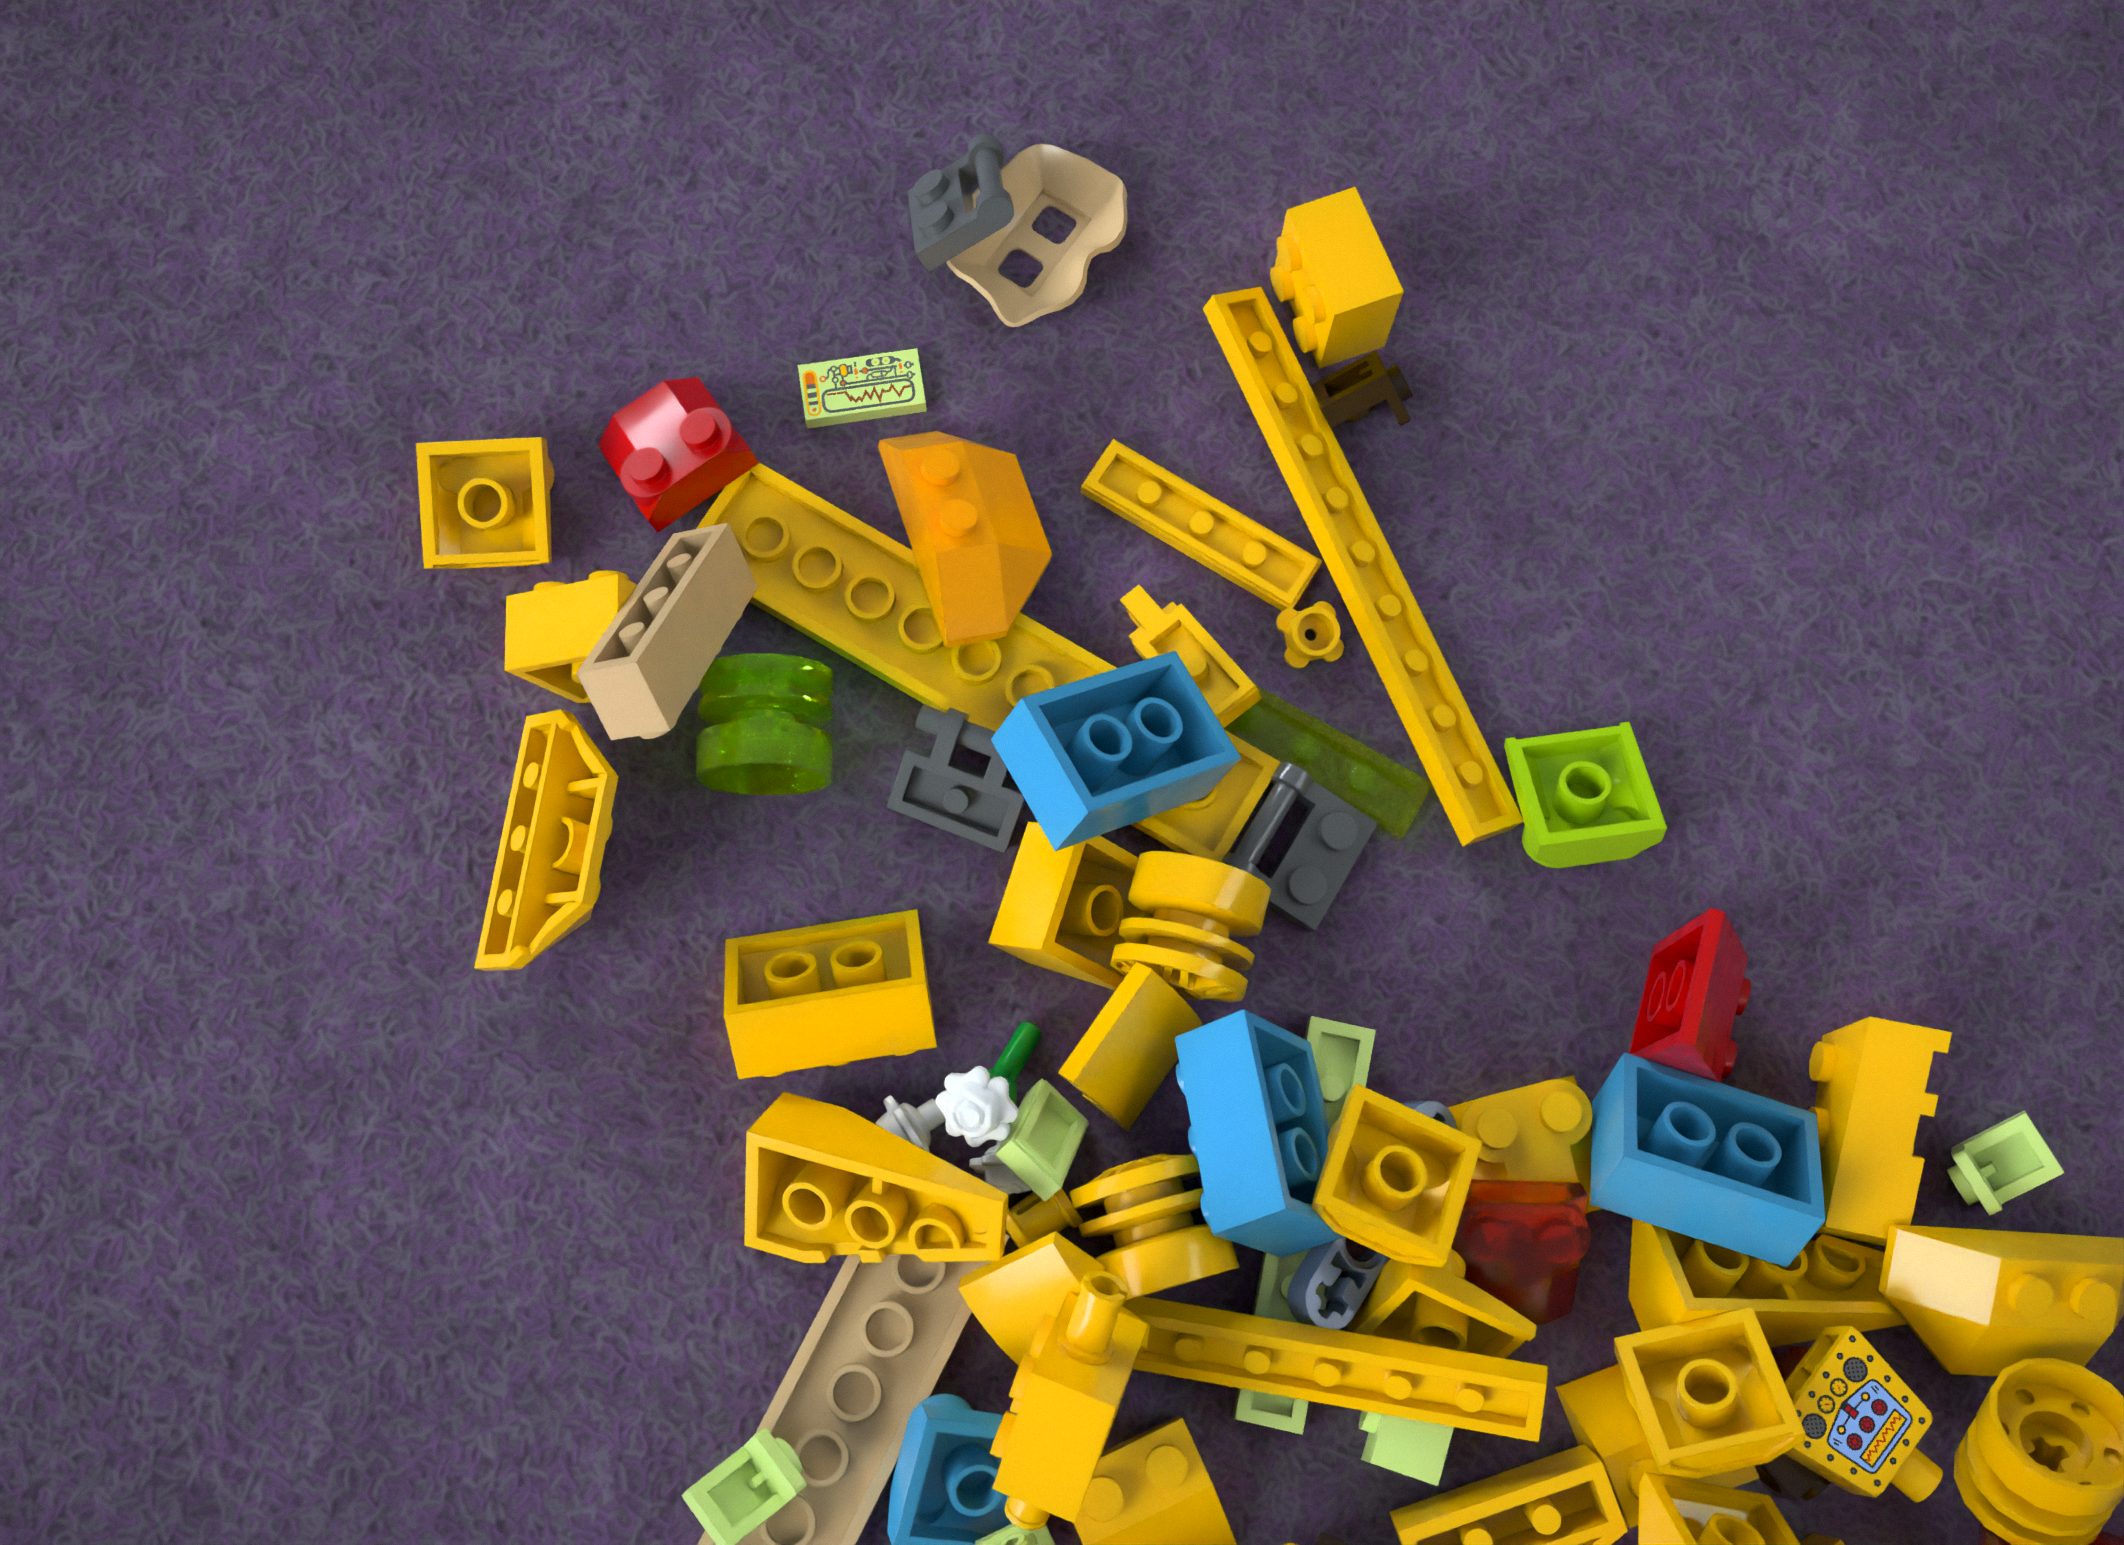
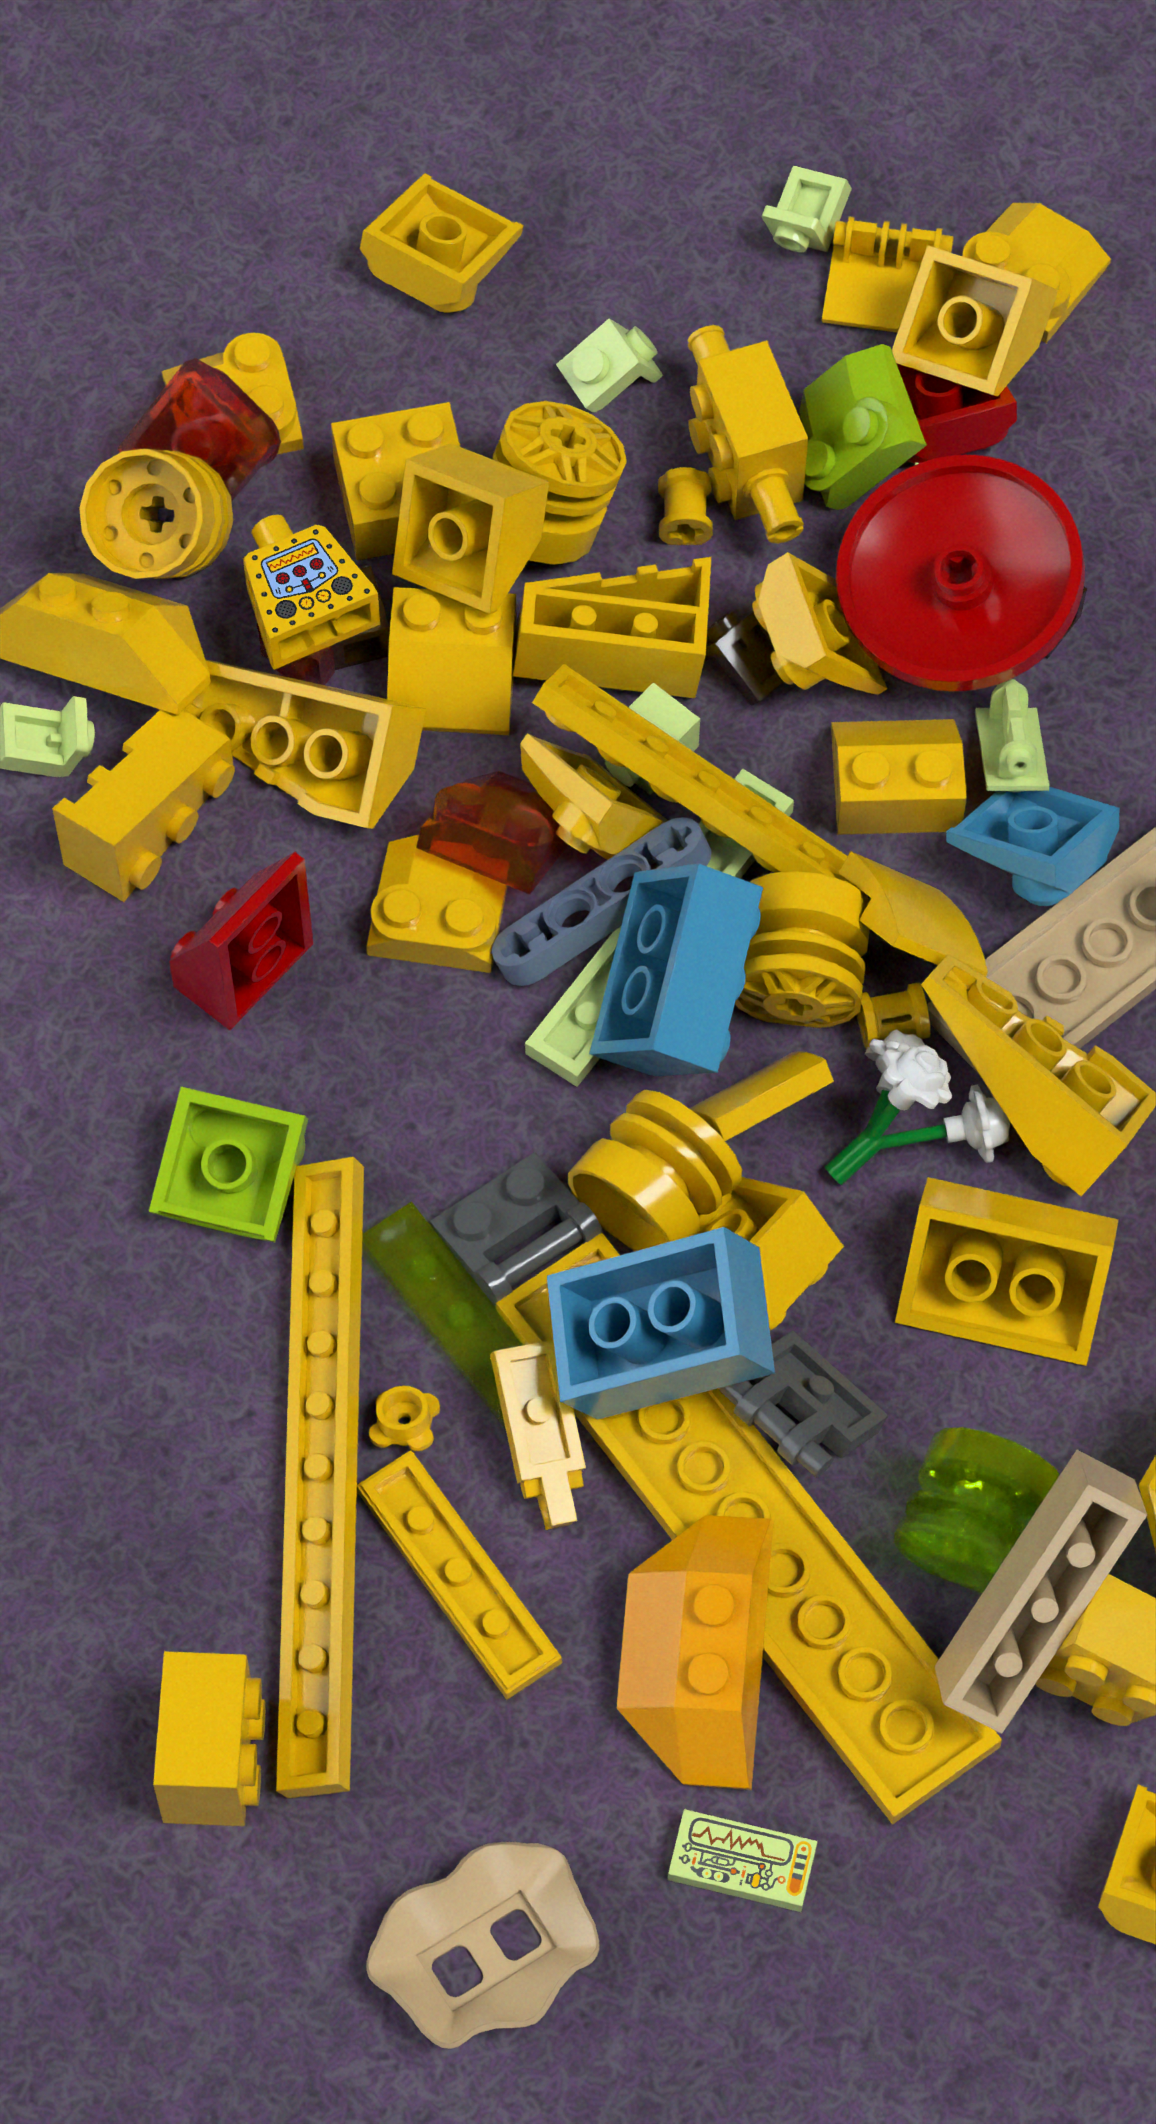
camera: 155 degrees left, 10 degrees down
(674, 449) = (966, 1854): red slope -> none
(944, 206) = (578, 1994): dark grey plate -> none
(1043, 1139) = (858, 1055): yellowish green tile -> none
(1066, 1402) = (935, 817): yellow brick -> none
(1359, 387) = (234, 1625): dark brown bracket -> none
(1395, 1179) = (583, 885): yellow slope -> none
(1706, 1160) = (290, 795): dark azure brick -> none
(1709, 1394) = (410, 643): yellow slope -> none

